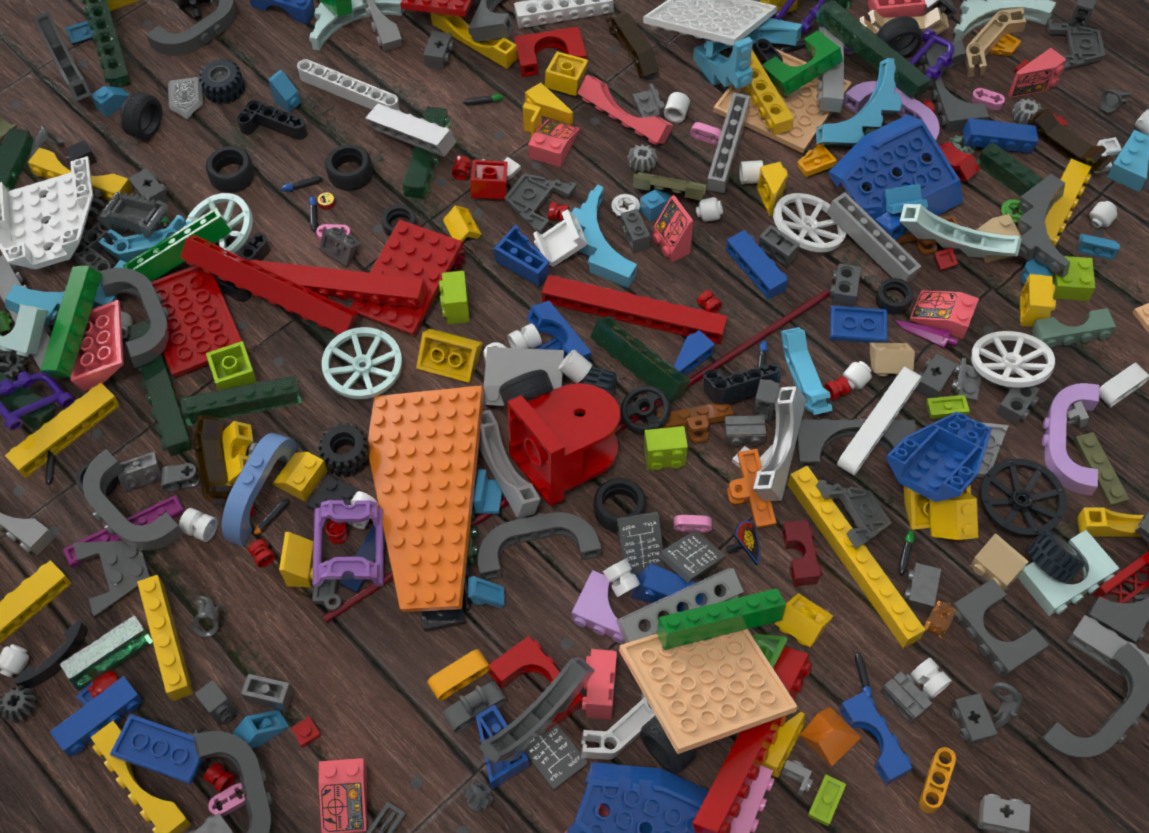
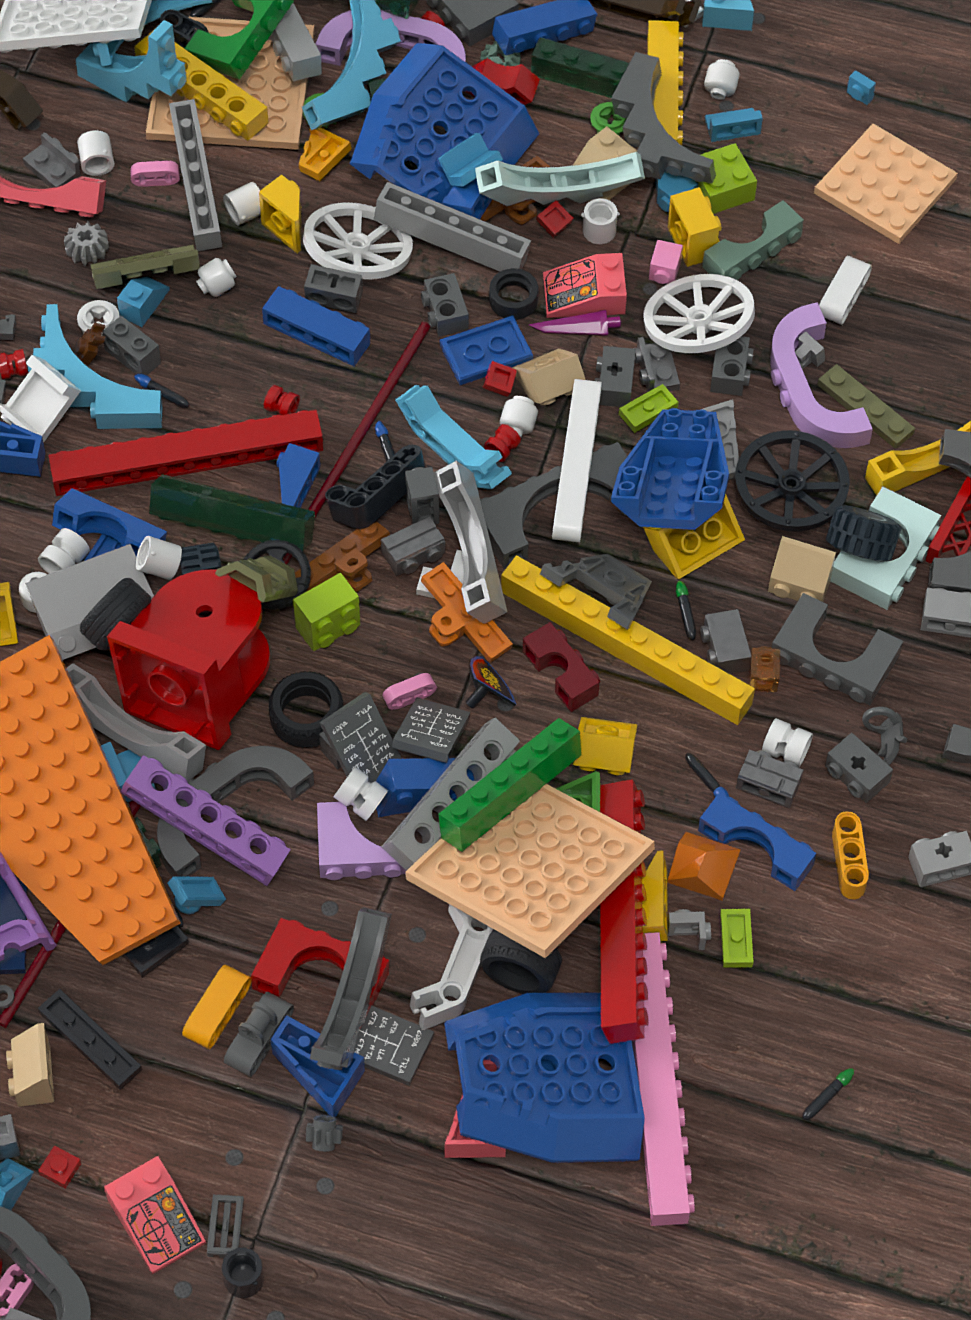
camera: 30 degrees left, 0 degrees up
(323, 658) = (31, 1067): none -> tan slope
(369, 657) = (89, 1039): none -> black plate
(536, 595) = (189, 820): none -> medium lavender brick
(600, 684) = (408, 950): coral wedge -> none
(609, 218) = (87, 345): none -> reddish brown plate
(630, 408) = (264, 575): none -> olive piece
(644, 271) = (146, 382): none -> black piece
(674, 230) = (187, 324): coral slope -> none
(857, 346) = (499, 378): none -> red plate
(954, 517) = (723, 540): yellow slope -> none
(975, 272) = (600, 221): none -> white piece
(1006, 316) = (665, 262): none -> bright pink brick

